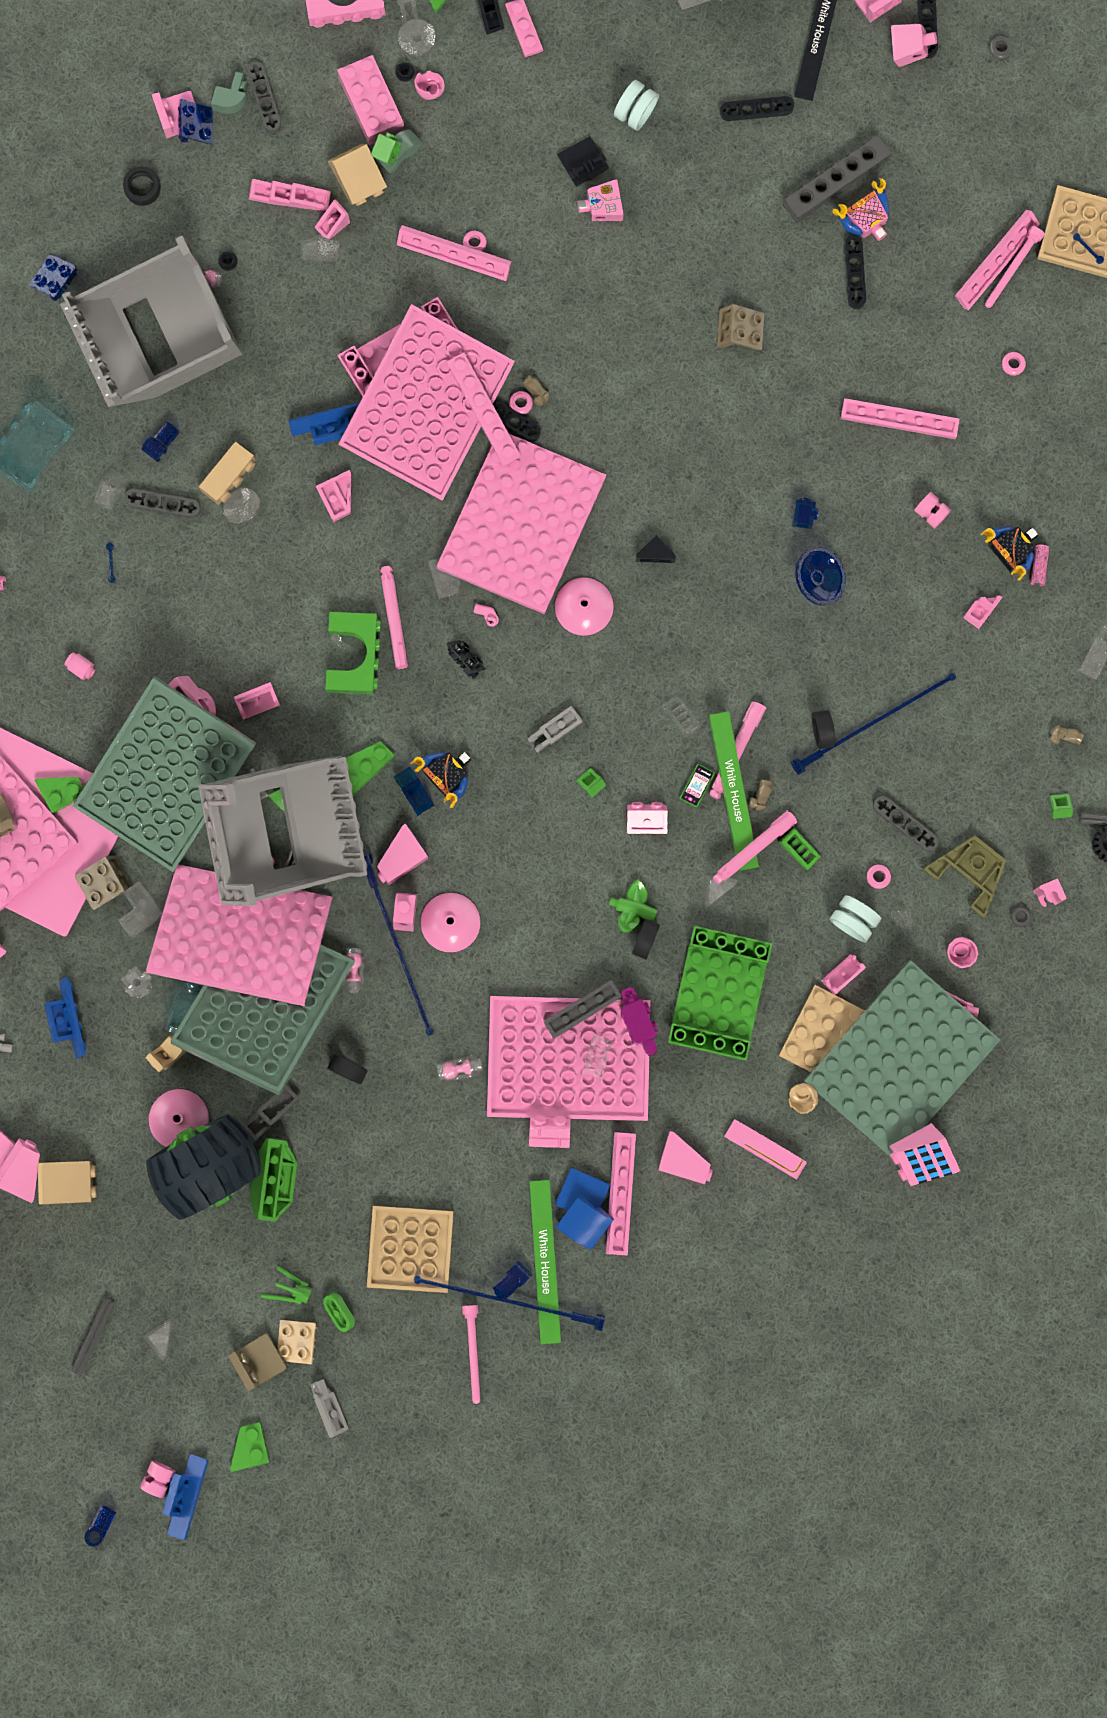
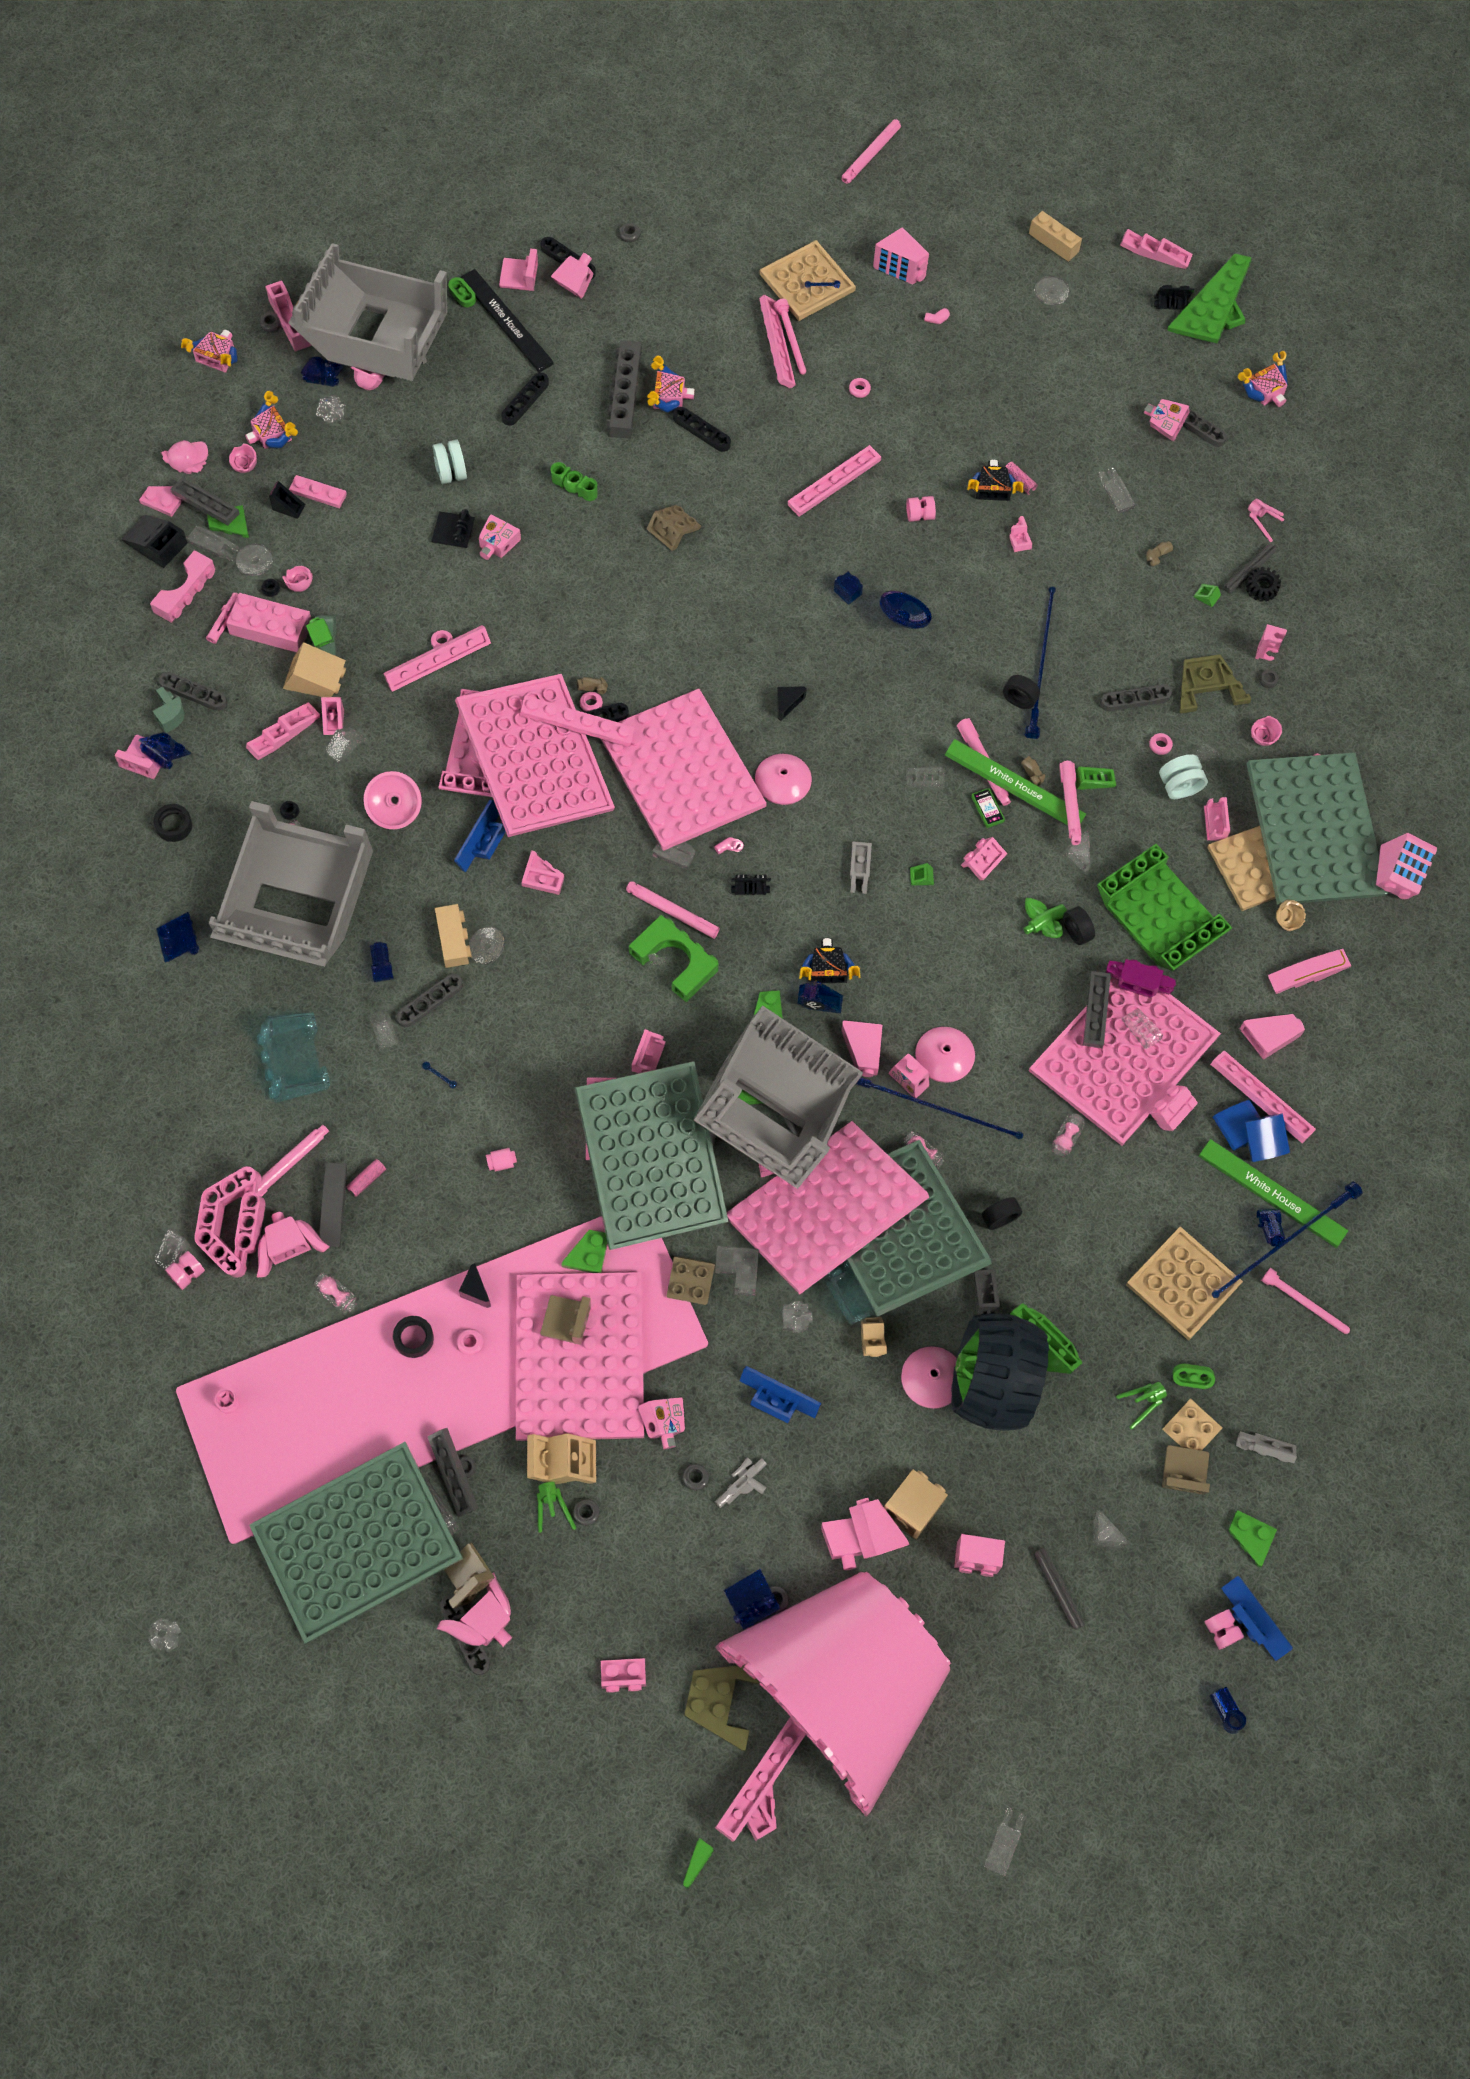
camera: 50 degrees left, 15 degrees down
(64, 1259) = (979, 1555): none -> bright pink piece
(289, 334) = (379, 800): none -> bright pink dish
(334, 65) = (216, 631): none -> bright pink pin
(707, 207) = (574, 481): none -> bright green piece

